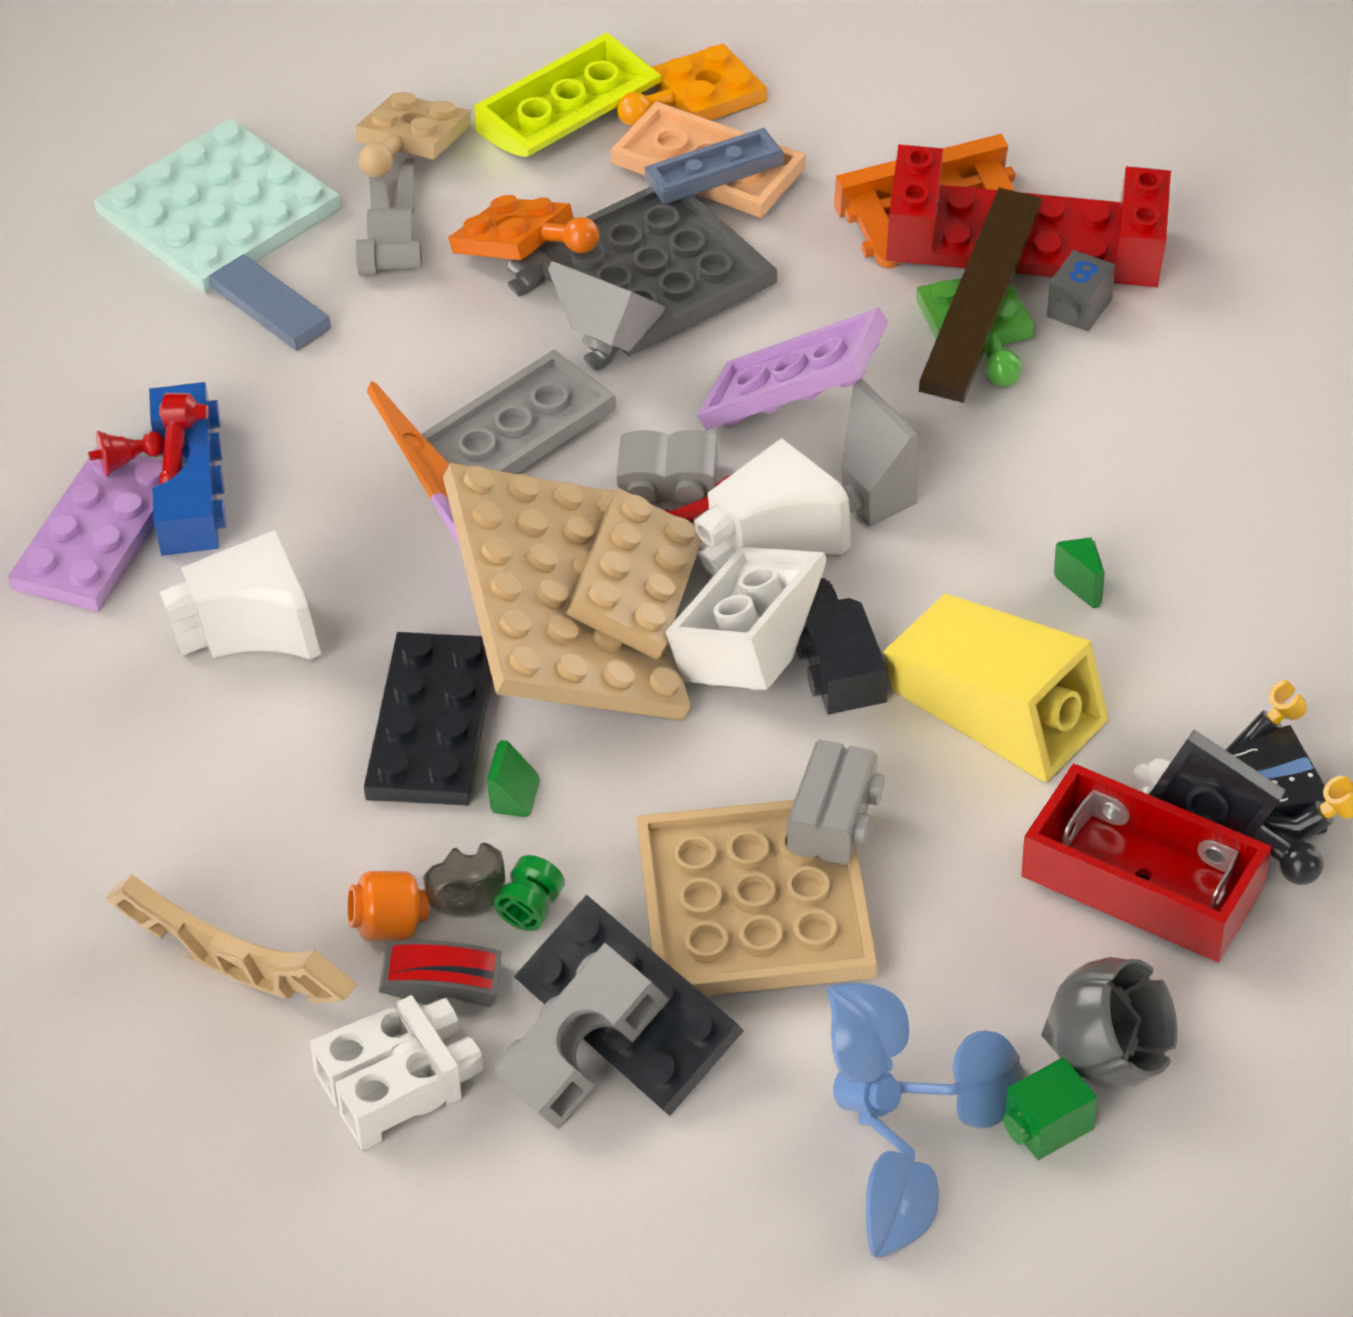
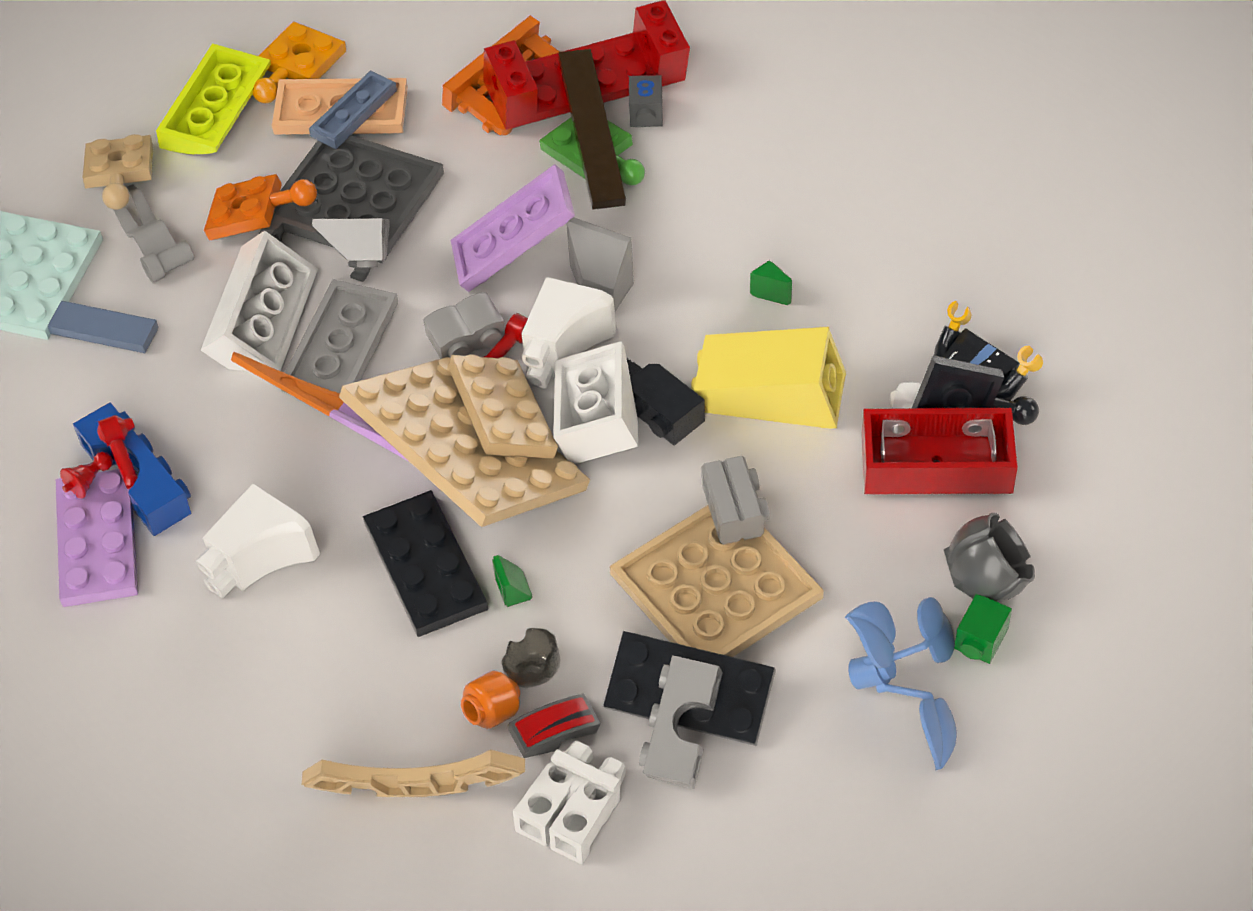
camera: 30 degrees left, 5 degrees up
(455, 346) = (260, 304): none -> white slope
(531, 888) = (575, 643): green wheel -> none

